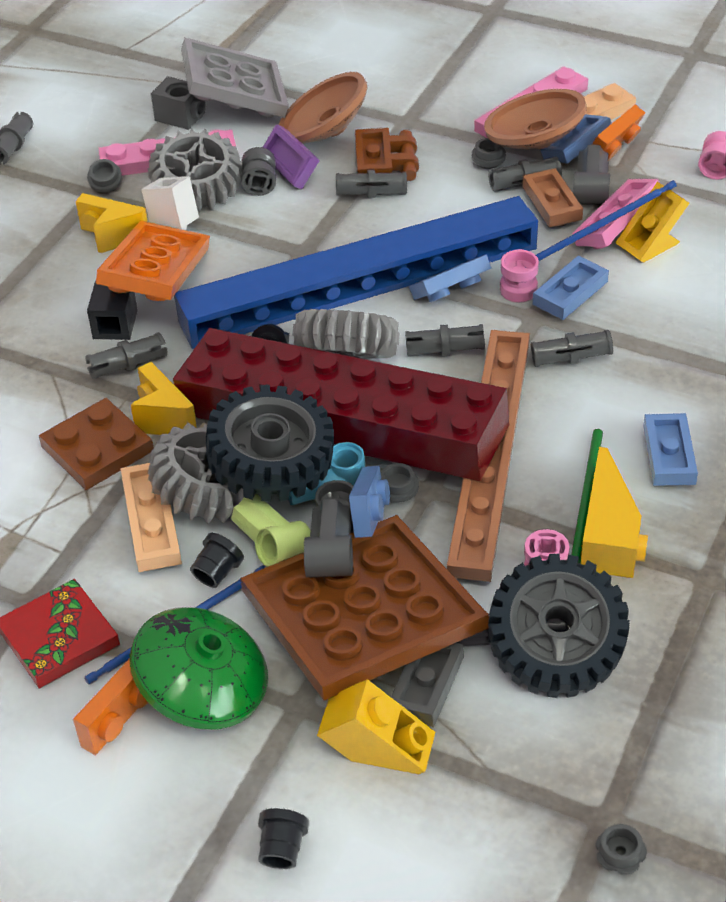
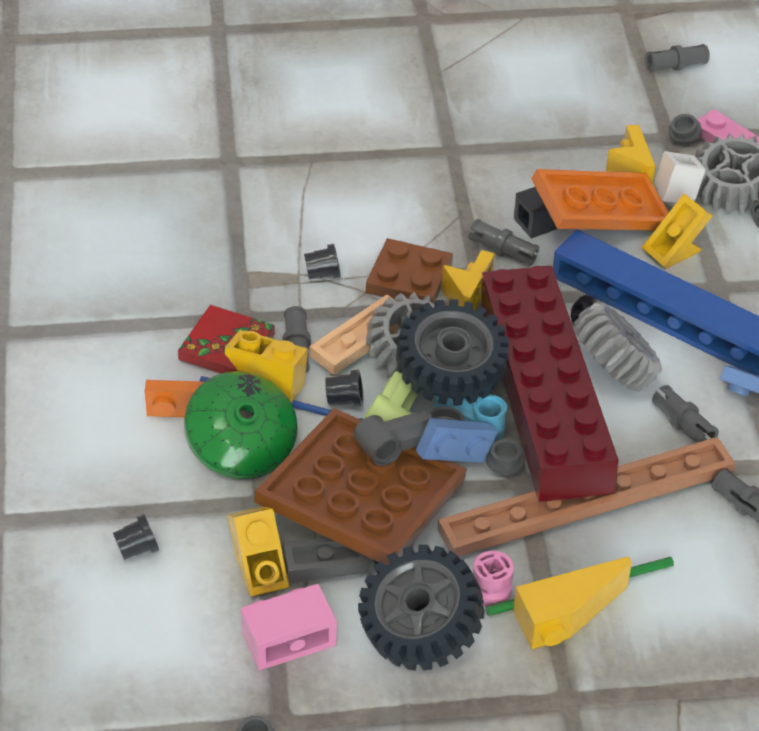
camera: 55 degrees right, 0 degrees up
(27, 498) = (323, 263): none -> black piece
(112, 570) = (297, 329): none -> dark grey pin
(135, 597) = (270, 358): none -> yellow slope
(231, 236) = (675, 234): none -> yellow slope
(497, 753) = (288, 626): none -> bright pink brick
(670, 449) = (684, 613): medium blue plate -> none

